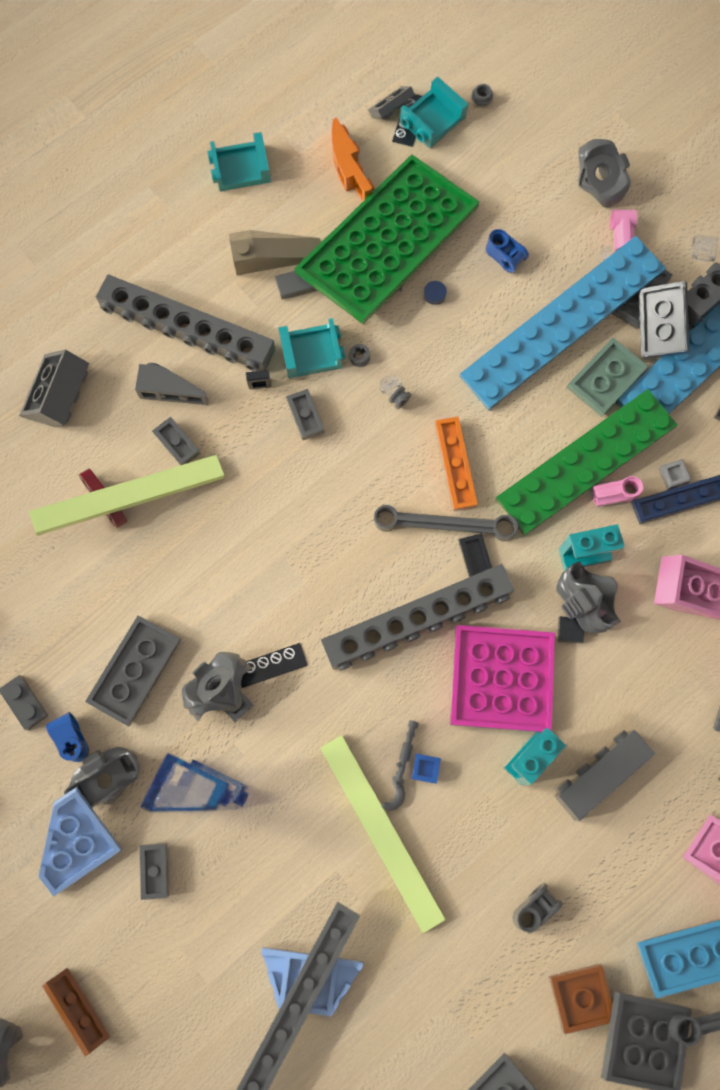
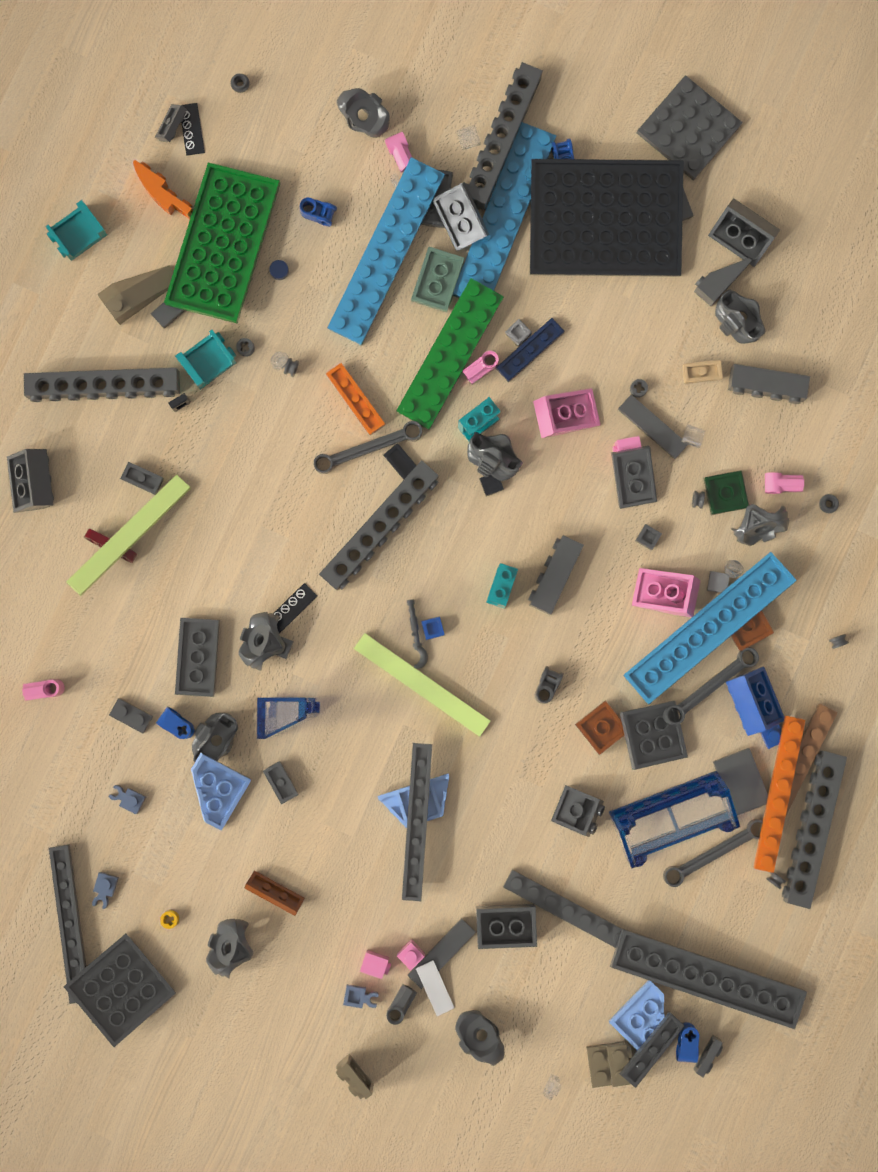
camera: 25 degrees left, 10 degrees up
(161, 384) = (107, 440): dark grey slope -> none
(305, 414) = (227, 413): dark grey plate -> none
(434, 113) = (208, 118): teal panel -> none
(502, 678) = (458, 541): dark pink plate -> none

